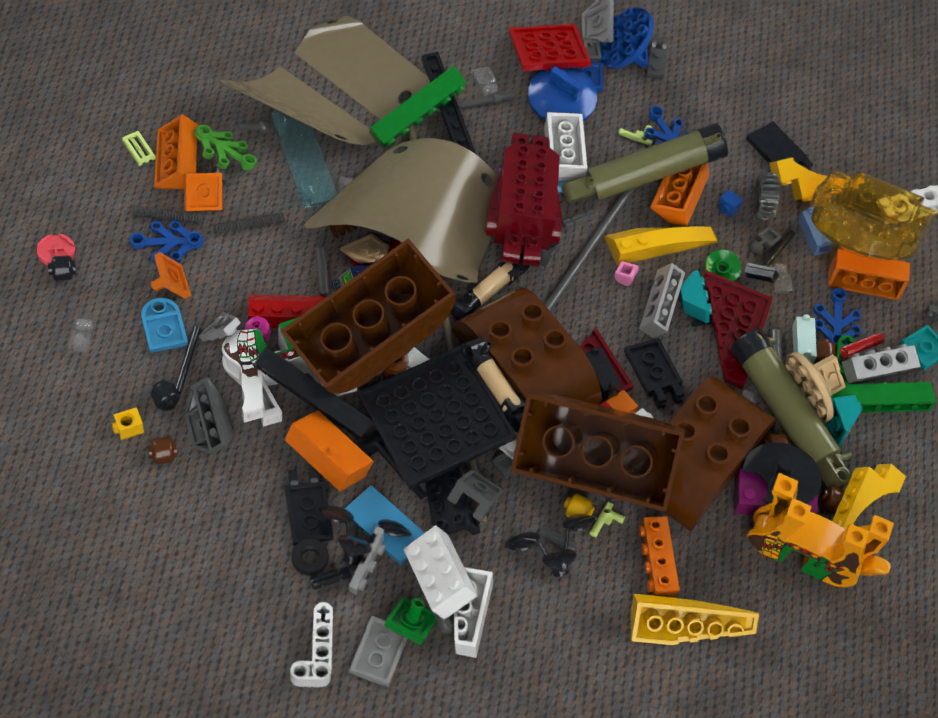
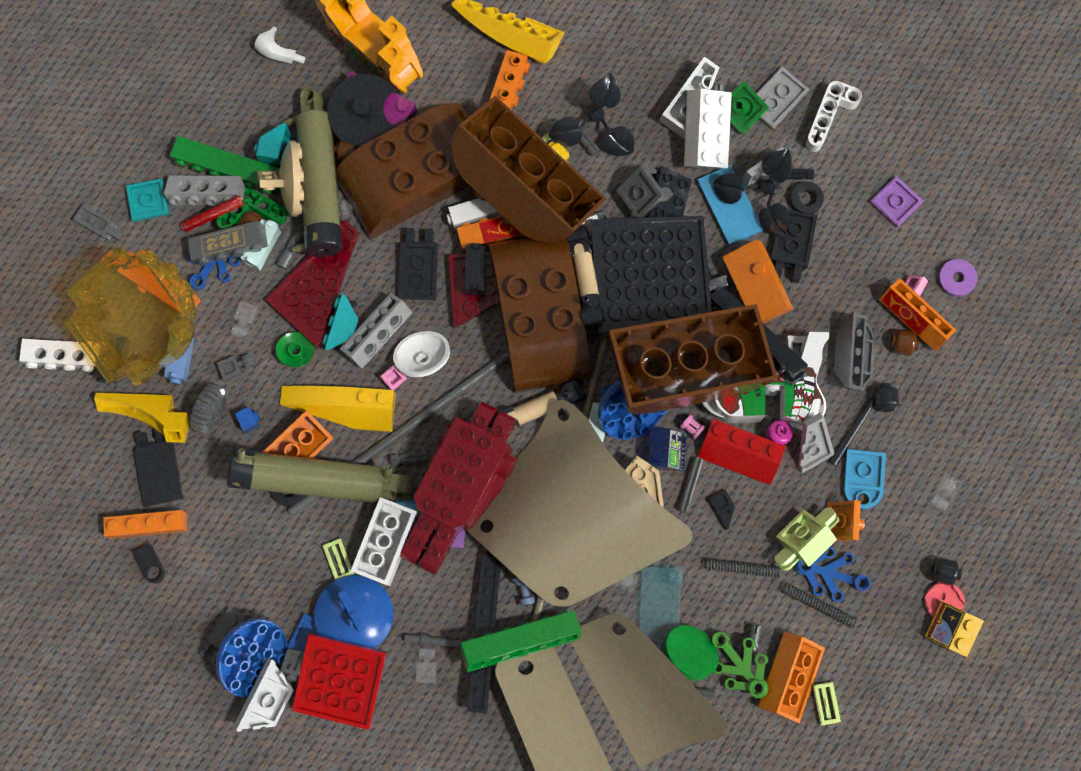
camera: 145 degrees left, 20 degrees up
(41, 225) = (954, 628): none -> slope
(126, 520) = (954, 288): none -> medium lavender tile
(129, 416) = (921, 382): yellow brick -> none
(158, 474) = (917, 314): none -> orange brick
(169, 506) = (916, 283): none -> bright pink brick
(201, 251) = (806, 538): none -> yellowish green brick
(202, 191) = (782, 612): orange tile -> none
(214, 586) = (896, 201): none -> medium lavender tile
(271, 141) = (691, 652): none -> green piece
(285, 264) = (723, 507): none -> black tile
(594, 134) = (332, 544): none -> yellowish green tile
(620, 290) = (421, 354): none -> white dish
(638, 137) = (295, 540): yellowish green hose -> none
(655, 115) = (264, 523): blue plant -> none
(746, 89) = (147, 559): none -> black piece
(763, 107) = (145, 524): none -> orange brick
(764, 271) = (260, 329): black piece -> none
(831, 498) = (323, 84): reddish brown head -> none
(832, 322) = (227, 243): none -> dark grey brick
(864, 488) = (301, 73): yellow arch -> none
(909, 516) = (267, 47): none -> white animal

